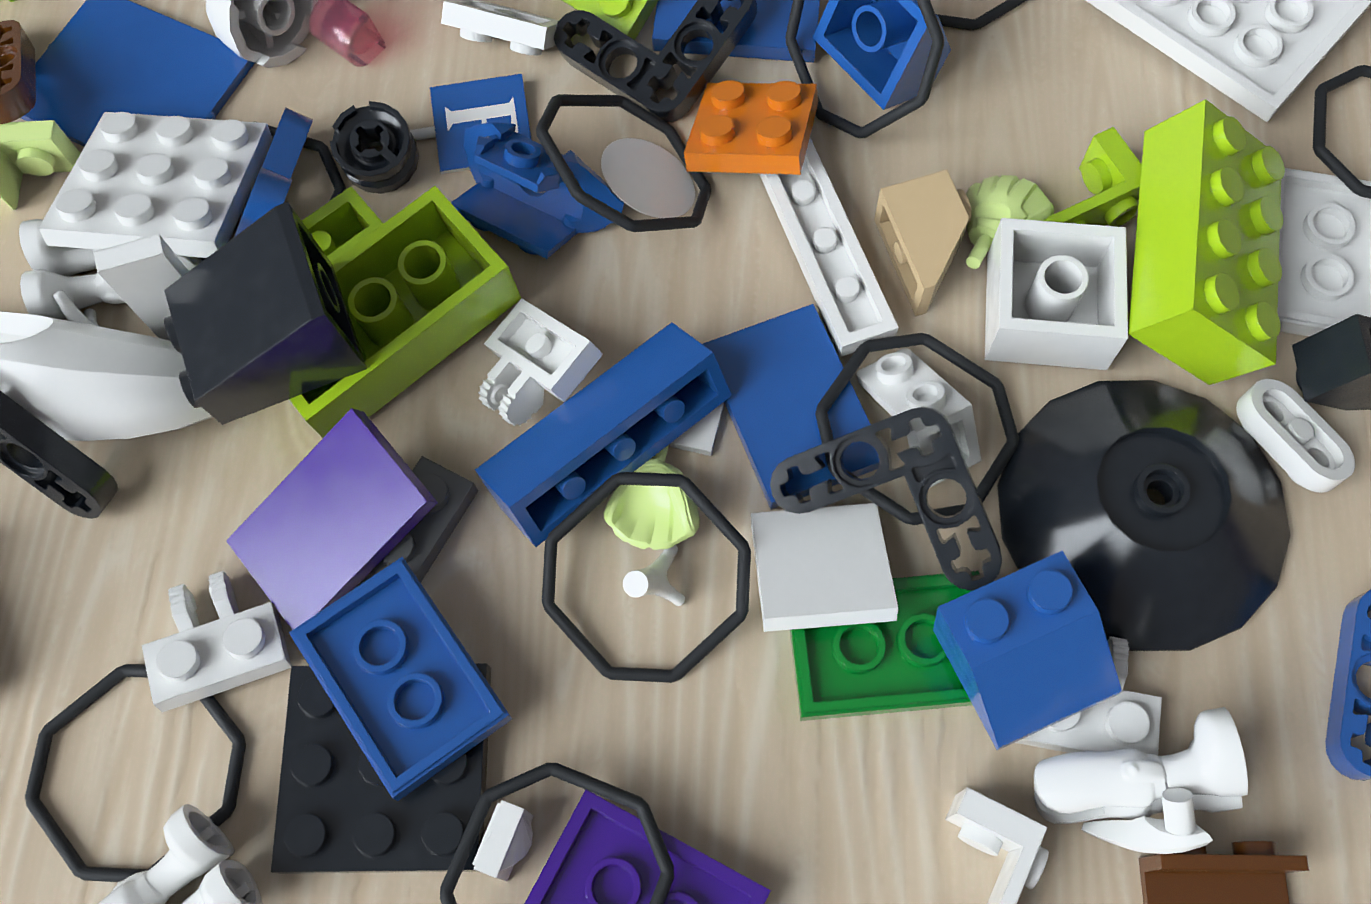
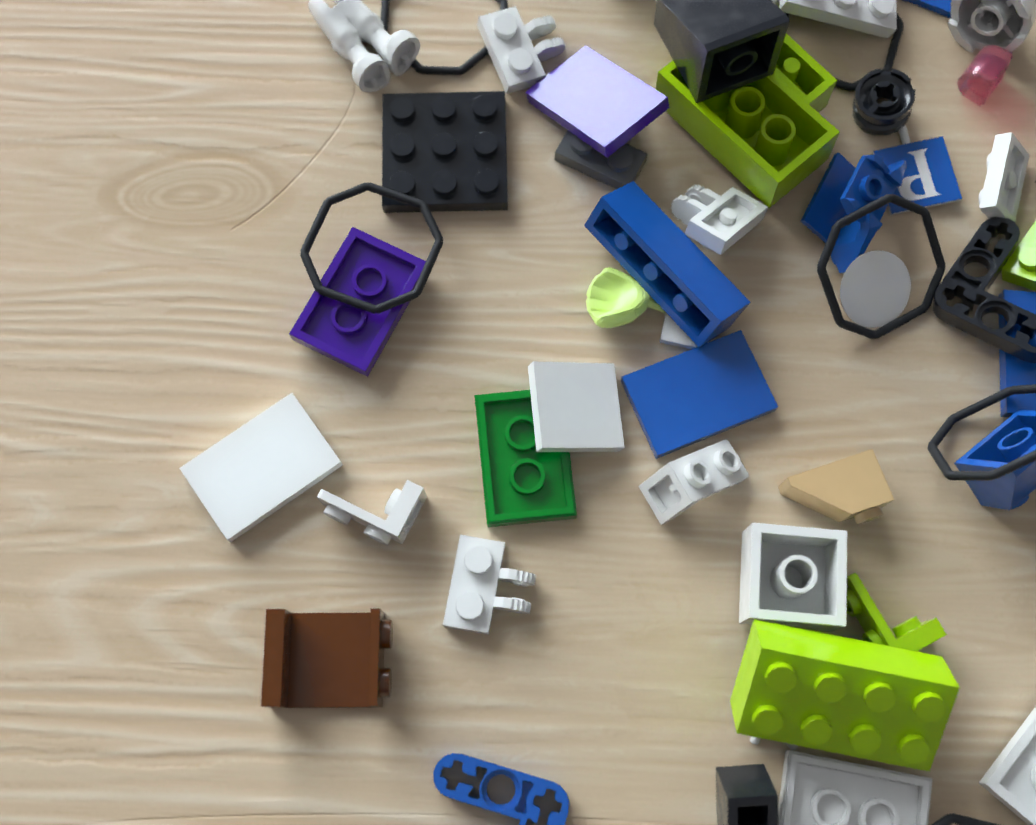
camera: 85 degrees right, 5 degrees up
(276, 172) = (813, 28): blue beam -> none
(400, 678) = (495, 149): blue tile -> none
(504, 841) = (397, 217): white tile -> none
(654, 579) = (563, 298): white bar -> none
(707, 644) = (606, 334): black piece -> none
(752, 128) = (924, 361): orange plate -> none
(830, 255) = (830, 415): white plate -> none
(920, 474) = (639, 462): black beam -> none
(955, 358) = (651, 532): black piece -> none
(999, 199) = (871, 554): yellowish green piece -> none
(1028, 649) = (514, 531): blue slope -> none
(1131, 783) = (432, 648): white piece -> none
(1153, 570) = (618, 690): black dish -> none
(1159, 836) = (393, 610): white bar -> none
(1295, 436) = (689, 760): white plate -> none

